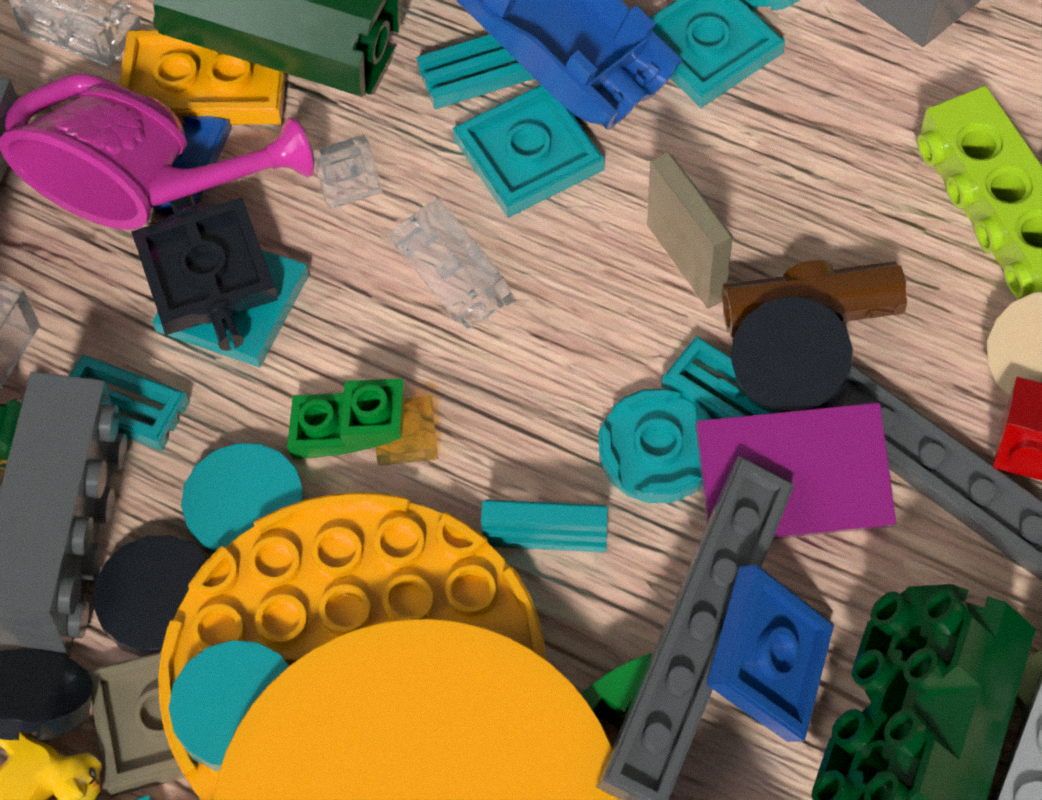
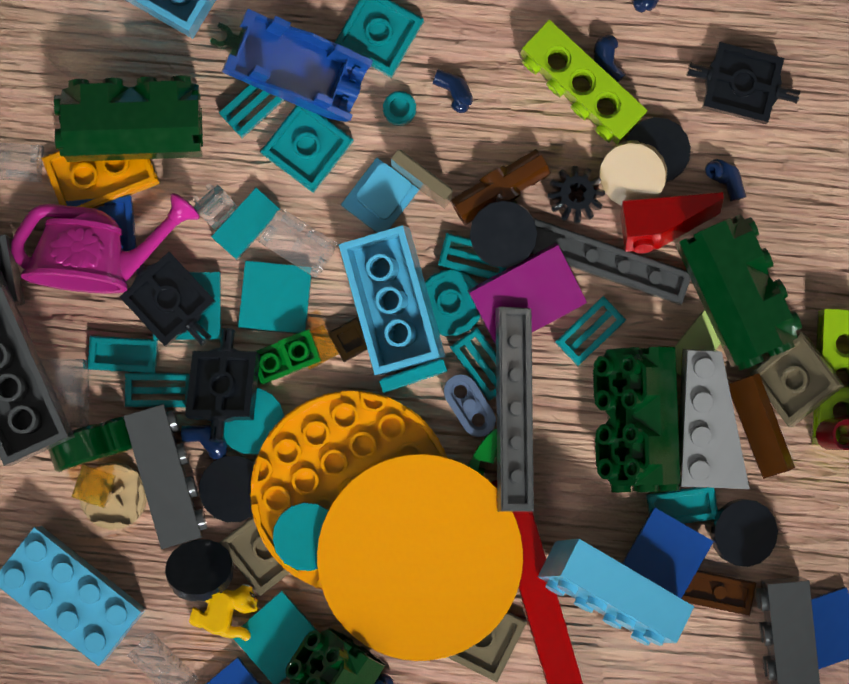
camera: 30 degrees left, 25 degrees up
(94, 328) = (122, 354): none -> teal tile
(159, 496) = (201, 434): none -> dark blue arm
(222, 420) = (222, 385): none -> black plate
(362, 223) = (246, 223): none -> teal tile
(374, 330) = (274, 297): none -> teal tile
(466, 440) = (349, 339): none -> dark brown tile
(561, 386) = (392, 300): none -> medium azure brick
(611, 255) = (379, 196): none -> medium azure piece
(622, 615) = (470, 405): none -> sand blue plate
(659, 510) = (469, 368): none -> teal tile
(696, 145) = (399, 108): none -> teal tile
(770, 654) = (552, 403): blue tile -> none
(799, 145) = (458, 88): none -> dark blue arm
(838, 595) = (611, 311): none -> teal tile
(938, 351) = (587, 198): none -> black gear

